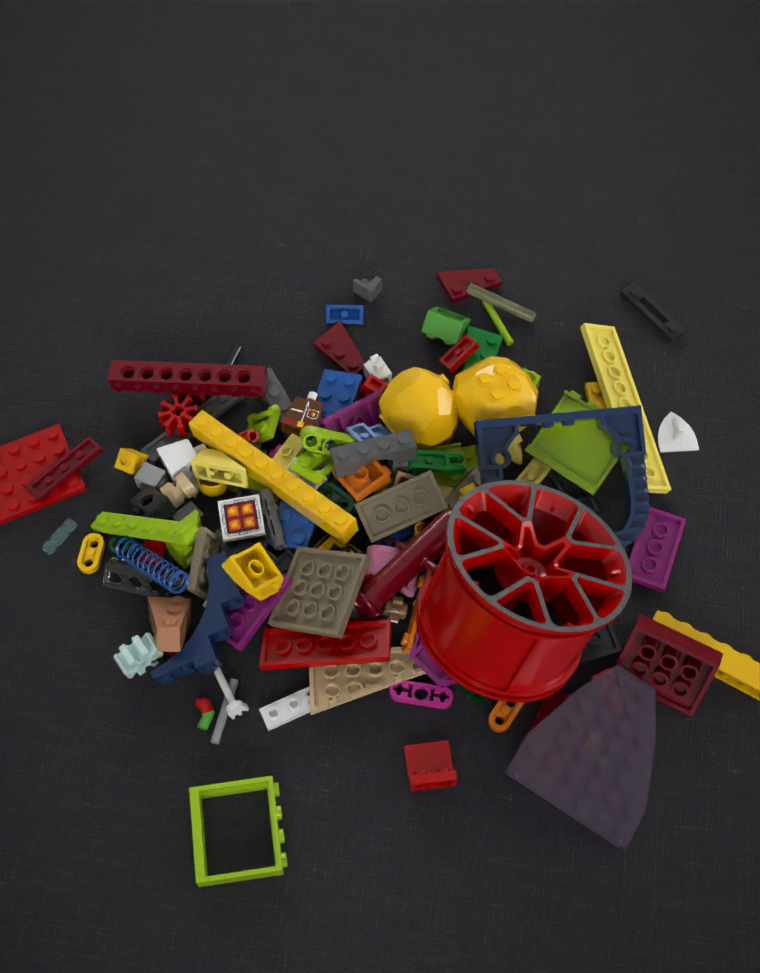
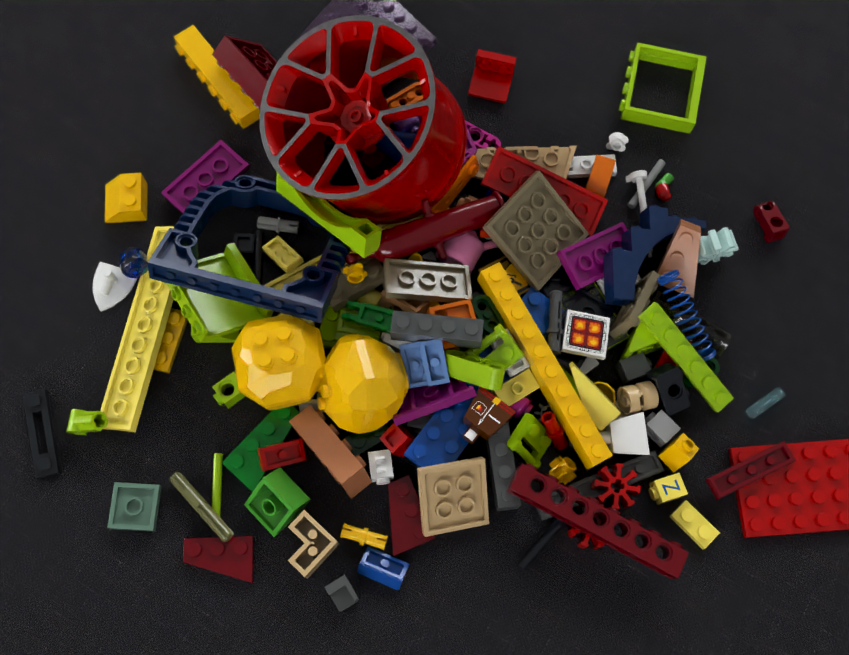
camera: 160 degrees left, 10 degrees up
(84, 713) = (771, 221): none -> dark red leg
(88, 554) = (737, 371): yellow plate -> none
(105, 421) = (694, 524): none -> light yellow plate
(134, 434) = (667, 489): none -> light yellow brick
(228, 417) = (563, 469): none -> yellow gear
(254, 572) = (595, 263): yellow slope -> none
(269, 742) = (617, 142): none -> white plate
(275, 693) = (600, 175): none -> orange slope
(309, 363) = (453, 496): none -> tan plate
(368, 326) = (364, 536): none -> yellow pin
(403, 304) = (316, 547): none -> tan brick
(408, 354) = (331, 451): none -> nougat wedge
(550, 288) = (134, 506): none -> sand green plate
(623, 323) = (86, 421): none -> lime piece
(667, 449) = (133, 262): none -> clear blue head
(711, 504) = (126, 198): none -> yellow slope

